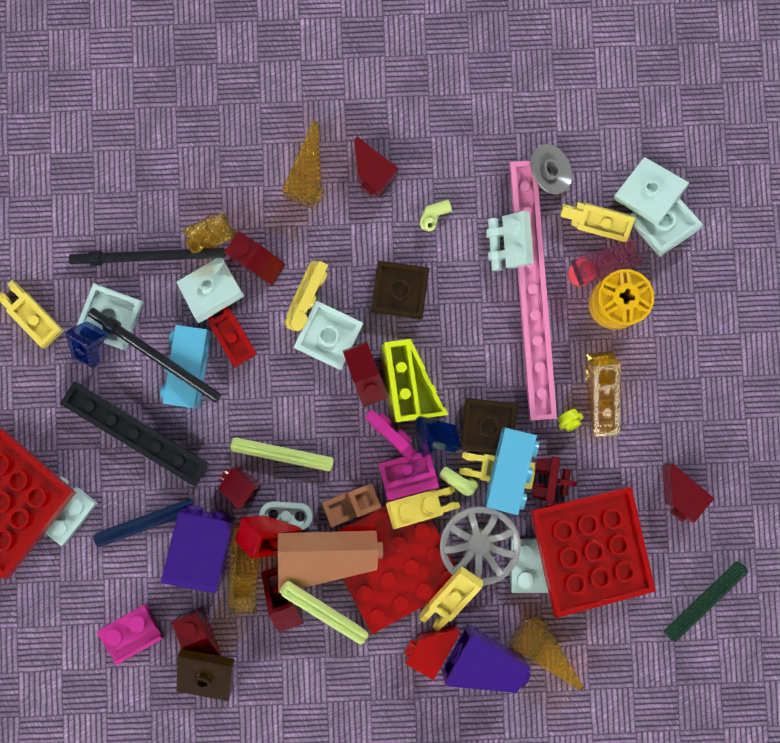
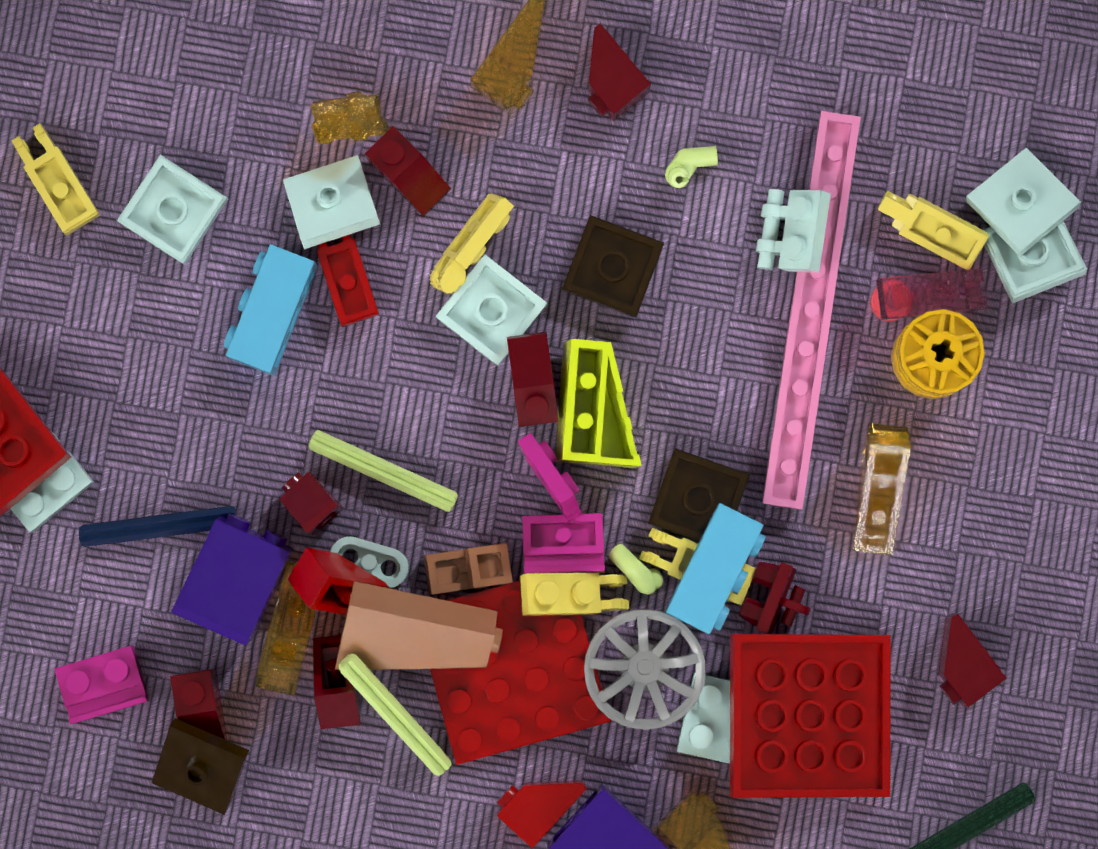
camera: 20 degrees right, 0 degrees up
(84, 343) = (130, 241): clear blue slope -> none
(97, 257) = (173, 118): black bar -> none
(114, 327) = (178, 227): black bar -> none
(134, 433) = (172, 391): black plate -> none
(436, 435) = (616, 492): clear blue slope -> none
(452, 598) = (586, 735): light yellow hinge -> none
(551, 169) = (880, 135): light grey dish -> none
(570, 420) = (822, 516): neon yellow plate -> none

